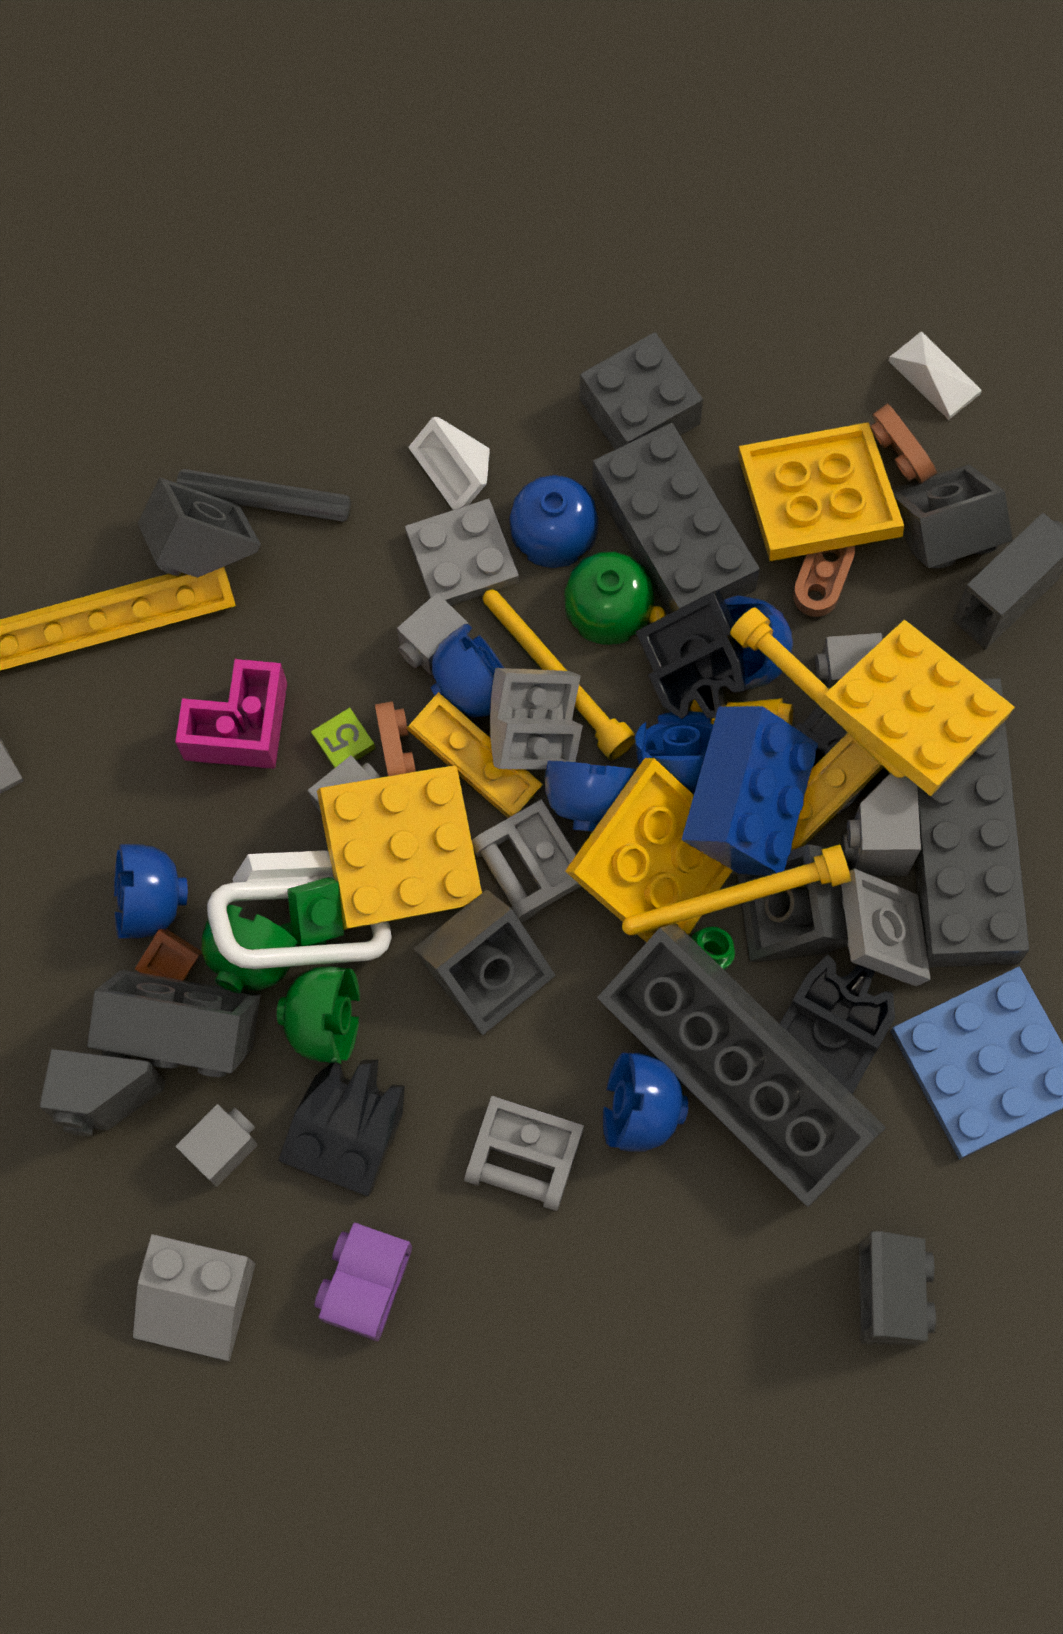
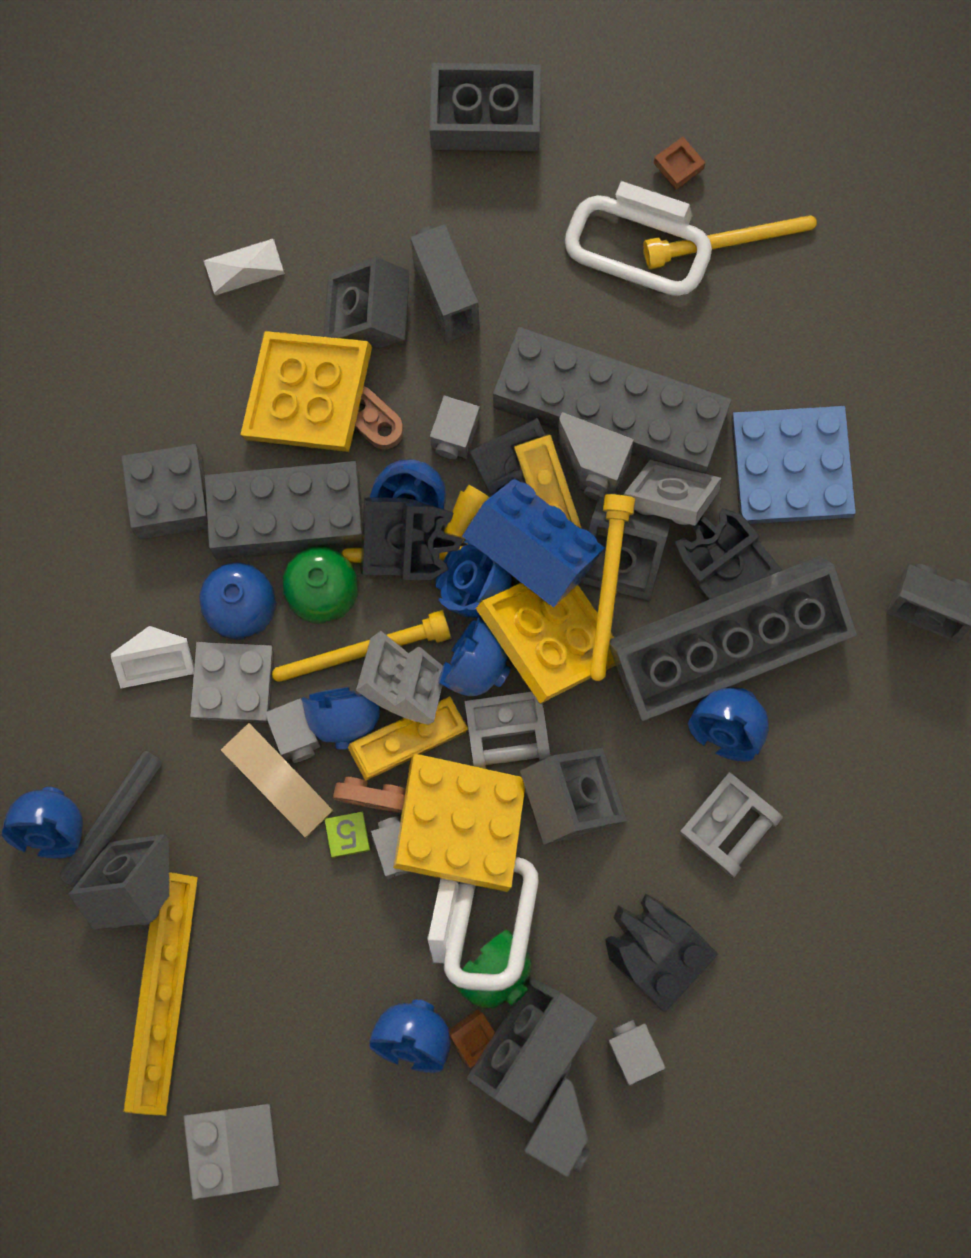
camera: 65 degrees left, 5 degrees up
(191, 1297) = (744, 1116): light grey slope -> none
(231, 427) = (45, 822): none -> blue cylinder
(239, 730) = (311, 908): dark pink brick -> none
(315, 912) = (487, 908): green bracket -> none
(319, 1014) = (568, 935): green cylinder -> none
(364, 1281) = (783, 981): medium lavender brick -> none
(371, 639) = (277, 780): none -> tan slope
(718, 942) = (629, 616): green plate -> none
(754, 632) = (415, 483): yellow piece -> none
(911, 458) = (310, 312): nougat plate -> none
(916, 707) = (524, 393): yellow plate -> none

